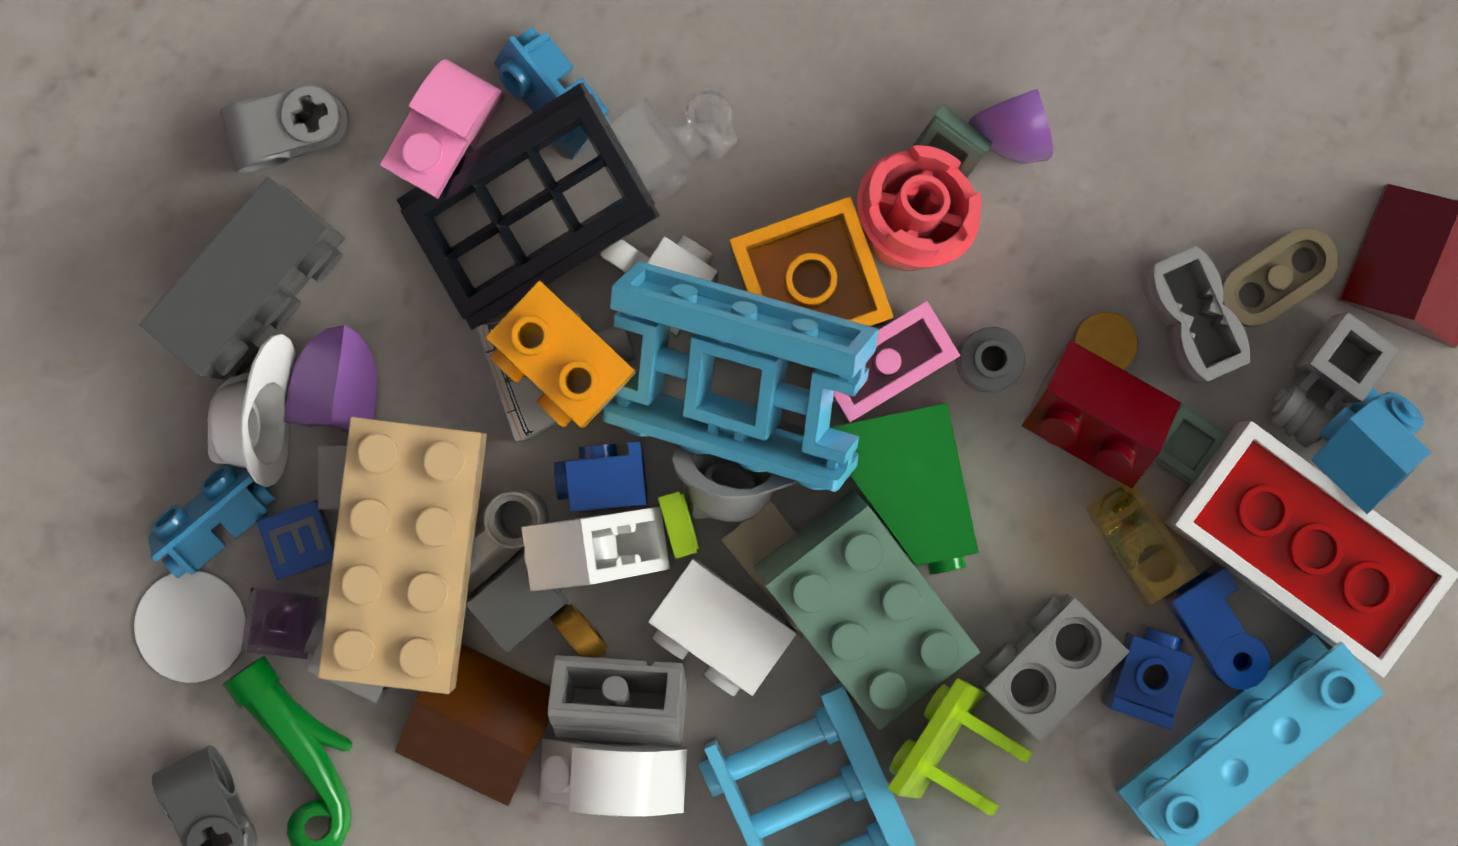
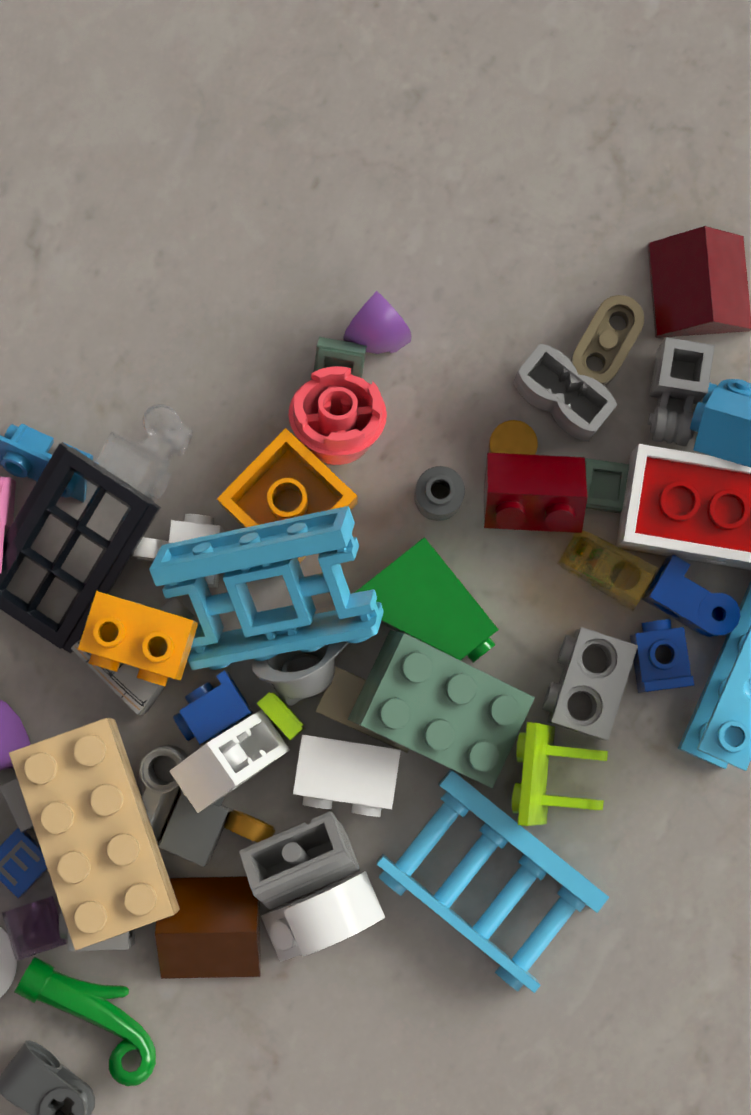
camera: 25 degrees left, 5 degrees down
(903, 355) = (377, 519): bright pink brick -> none

